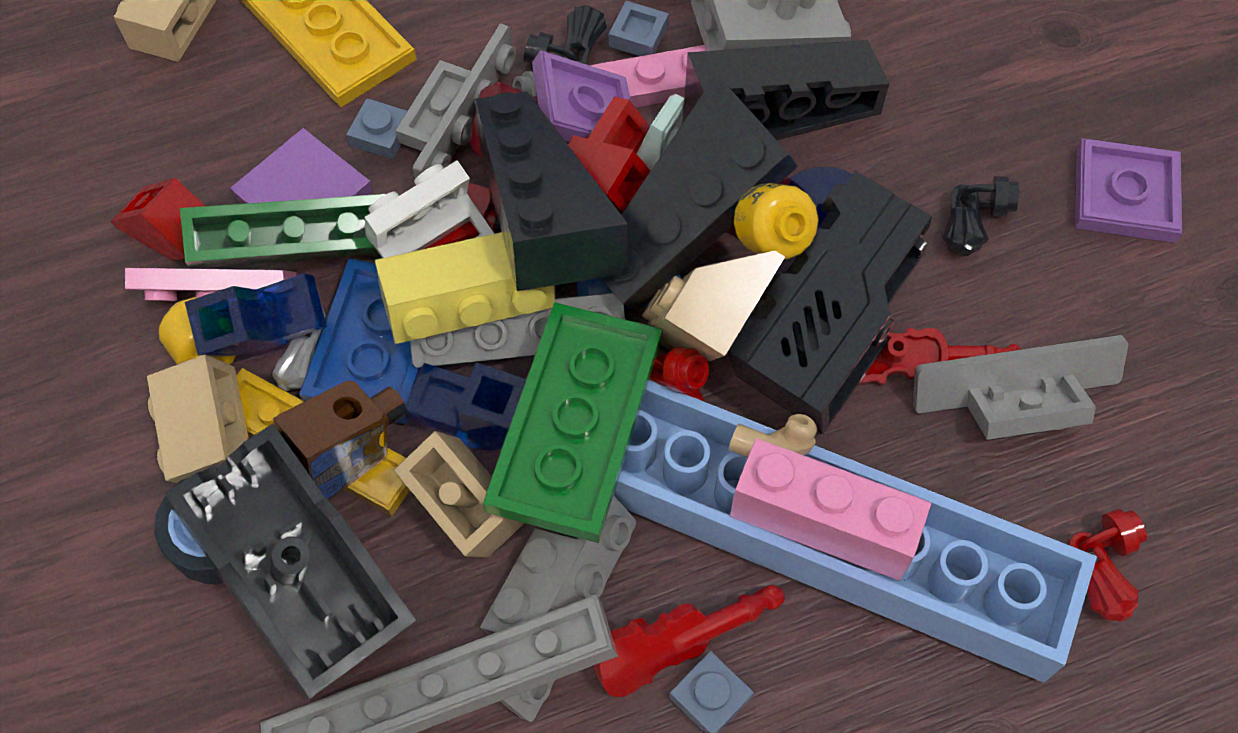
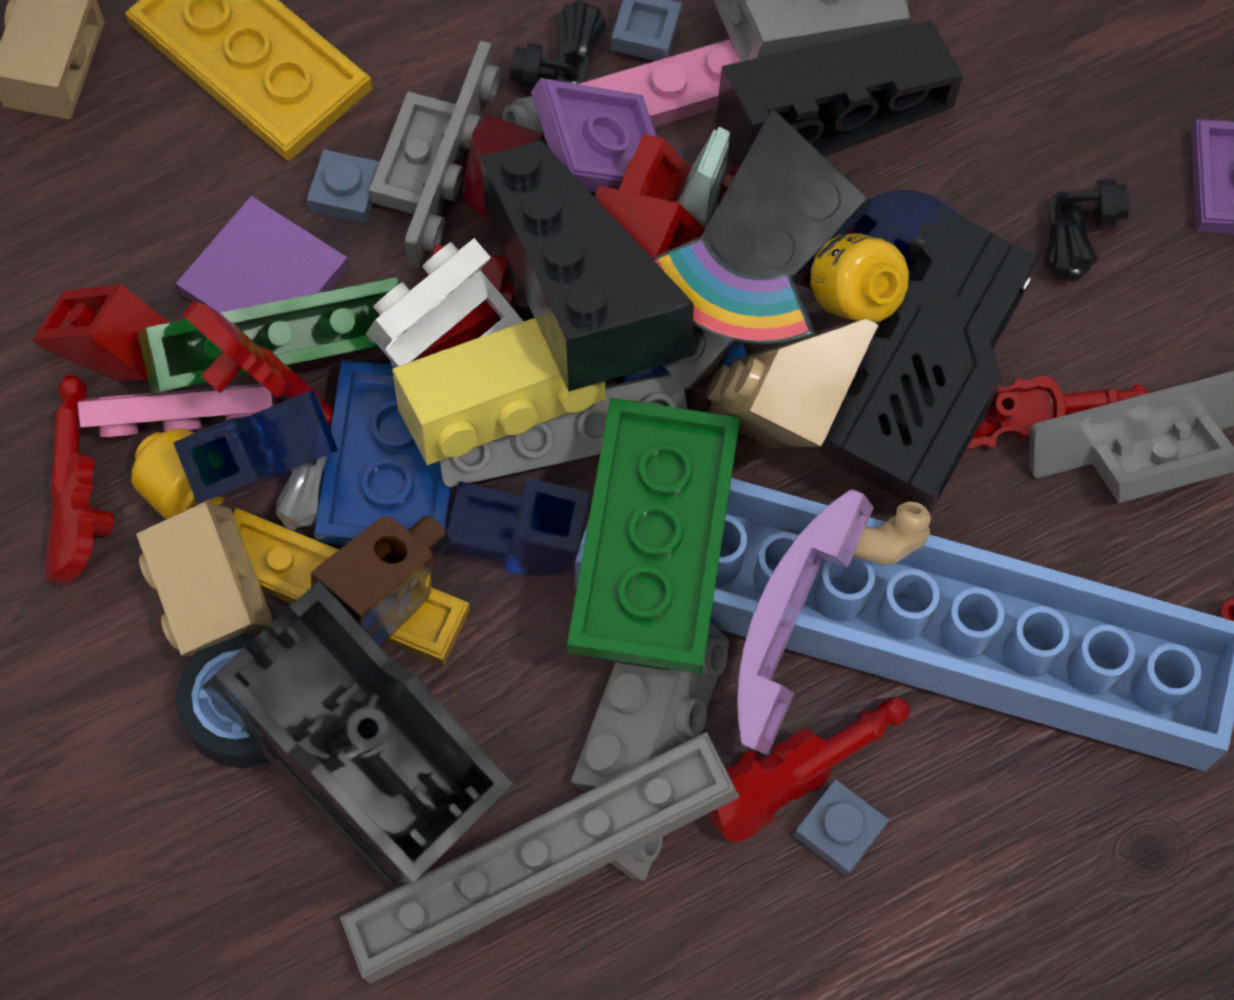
camera: 10 degrees left, 5 degrees up
(108, 338) = (71, 485): none -> red piece
(250, 233) = (242, 353): none -> red piece
(452, 490) = (524, 633): tan brick -> none
(666, 231) = (736, 303): none -> tile
(682, 371) = (768, 463): red piece -> none
(723, 433) = (829, 537): none -> lavender slope
(829, 509) = (956, 608): bright pink brick -> none

